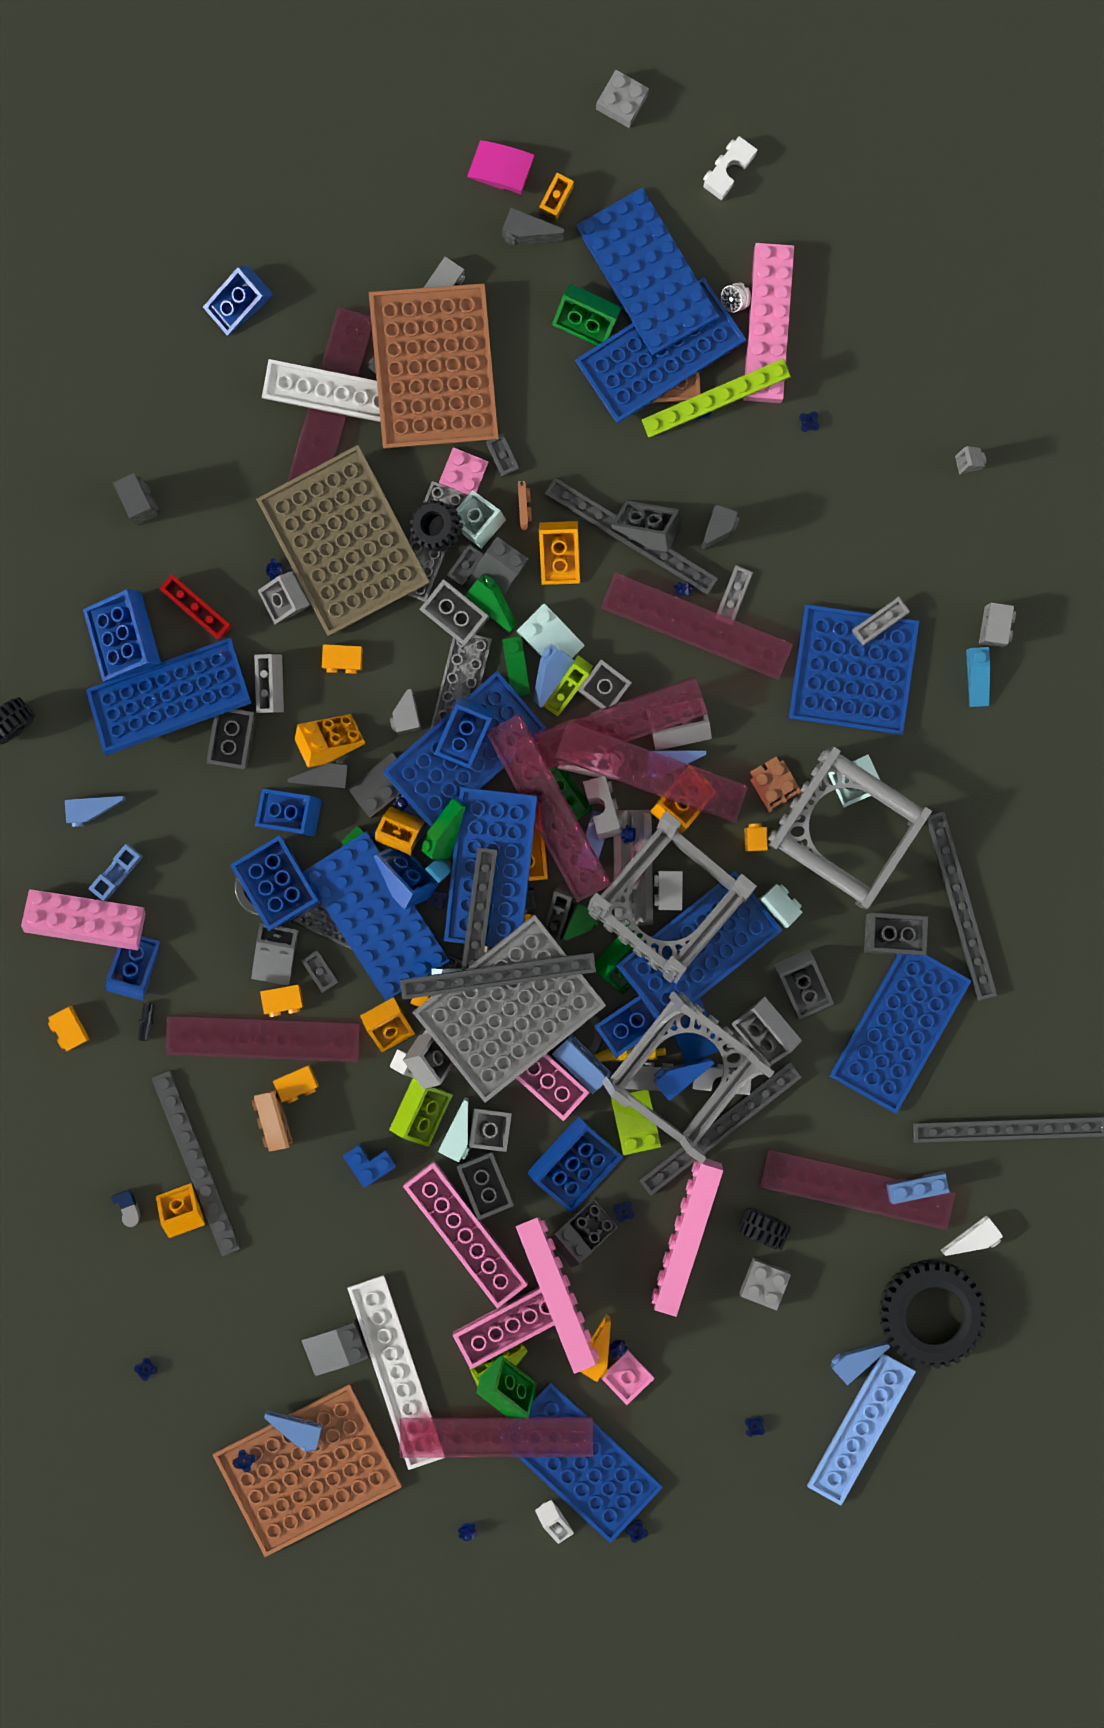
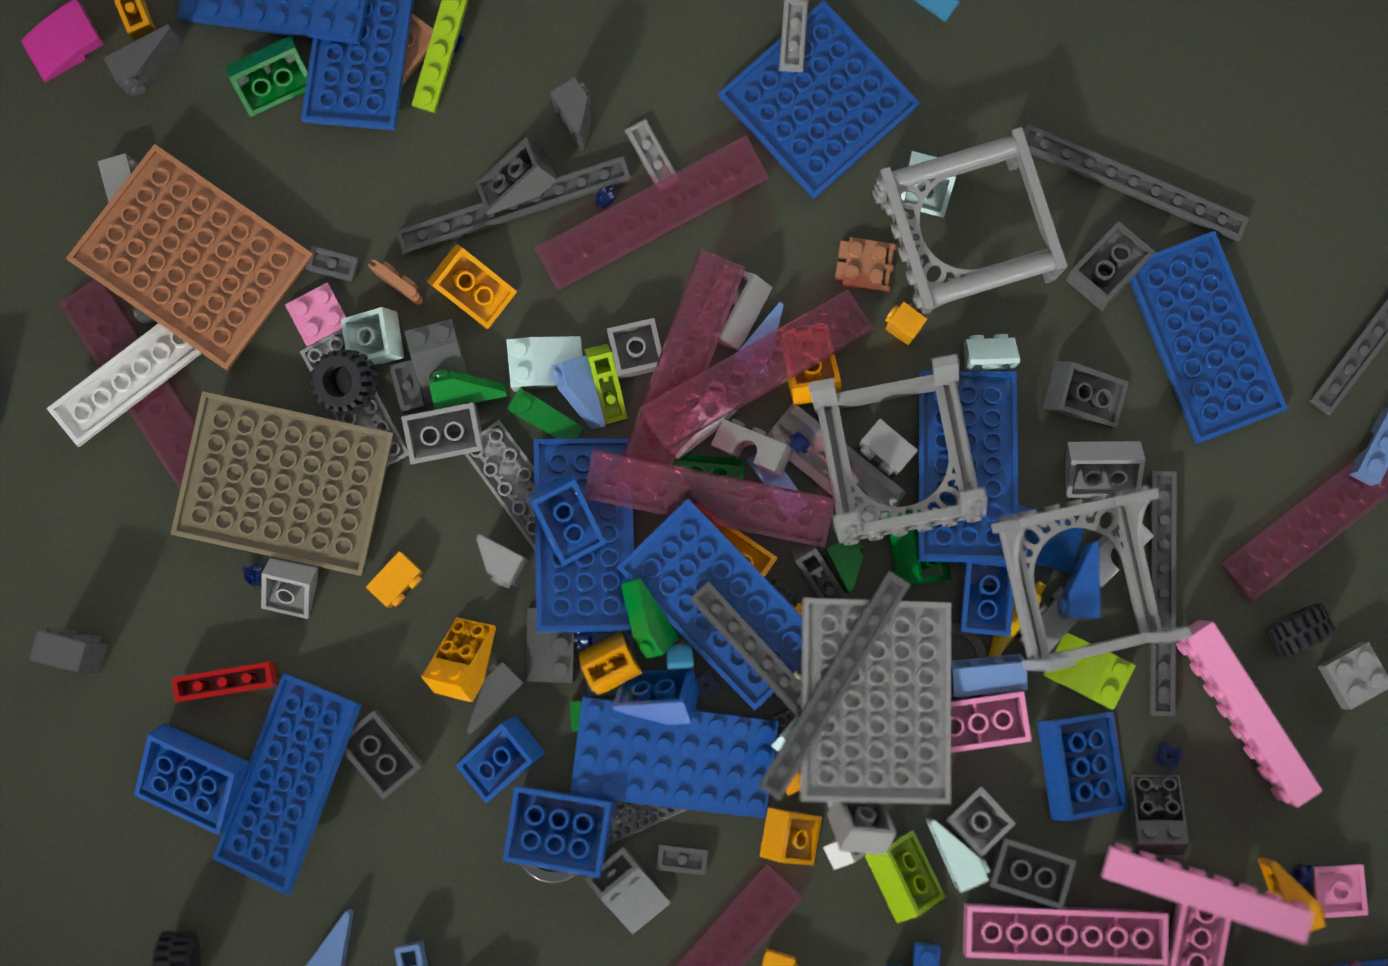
camera: 40 degrees left, 5 degrees down
(269, 683) = (358, 672): light grey brick -> none
(282, 999) = (679, 921): light orange brick -> none

